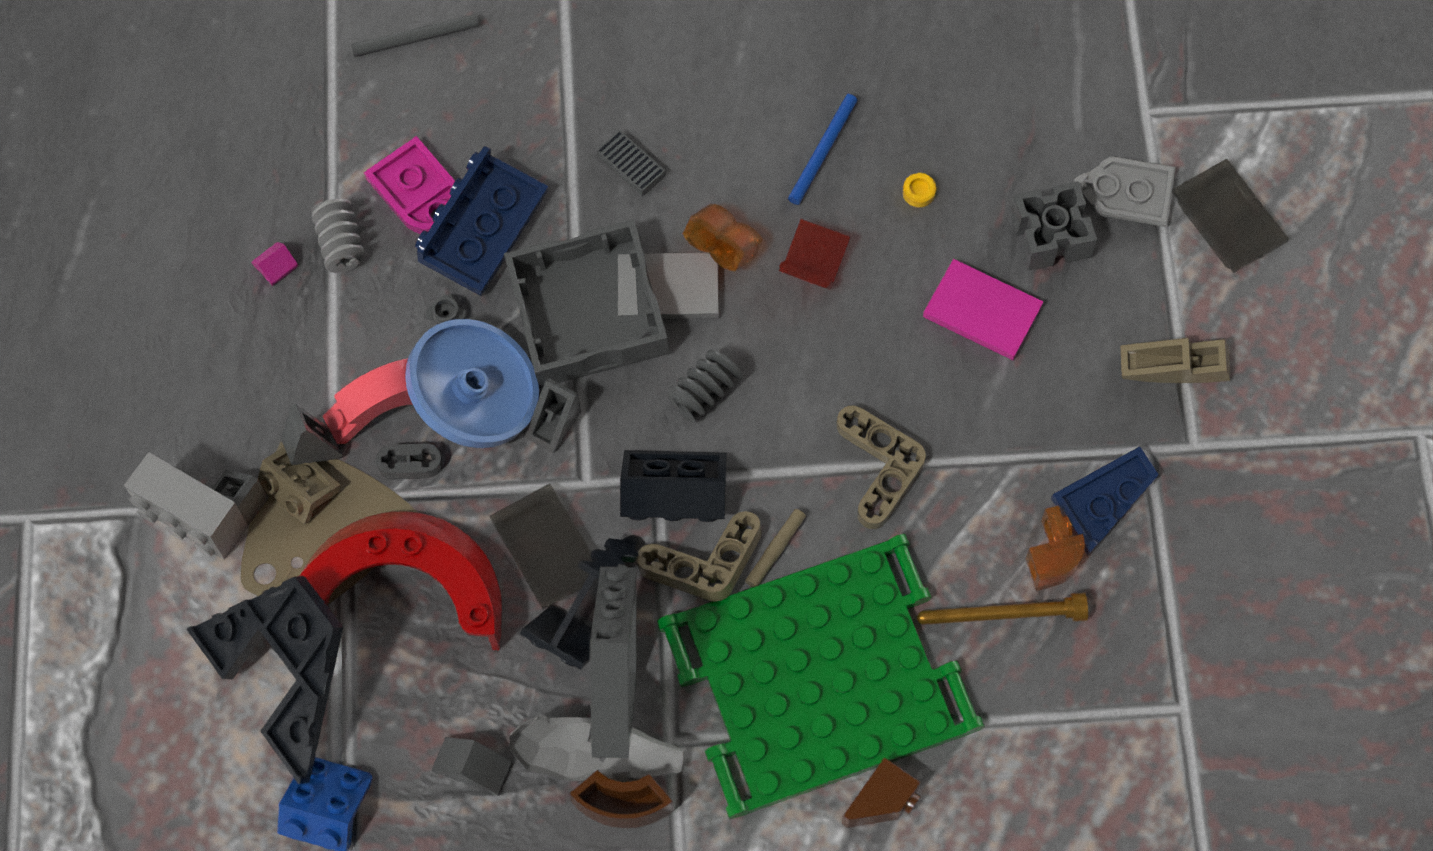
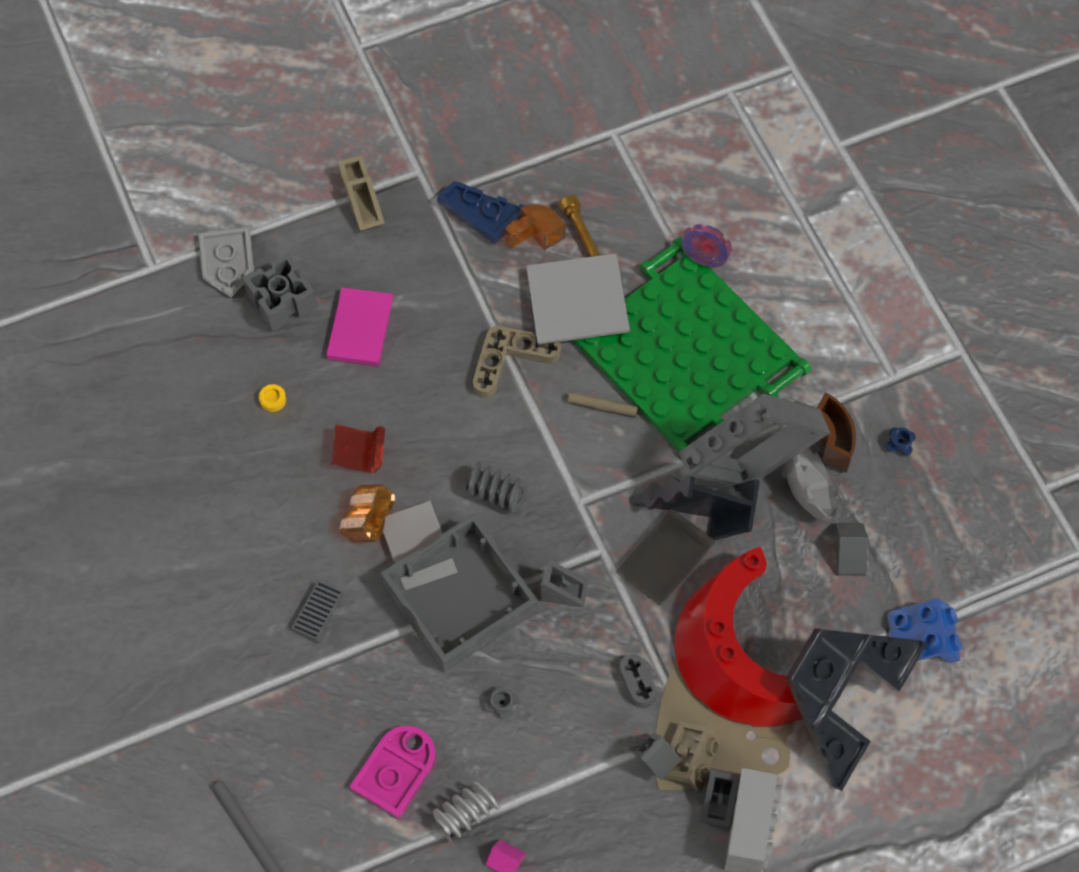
camera: 110 degrees left, 5 degrees down
(366, 399) = (600, 711): coral arch -> none
(472, 383) = (563, 646): medium blue dish -> none
(480, 221) = (414, 701): dark blue bracket -> none
(673, 485) = (582, 483): black slope -> none
(712, 569) = (637, 432): dark tan beam -> none
(822, 149) = (258, 475): blue bar -> none
(883, 797) = (757, 281): reddish brown slope -> none
(929, 564) = (577, 299): none -> light grey piece
(956, 753) = (706, 245): none -> clear pink tile
(1229, 216) = (228, 191): clear smoke piece -> none

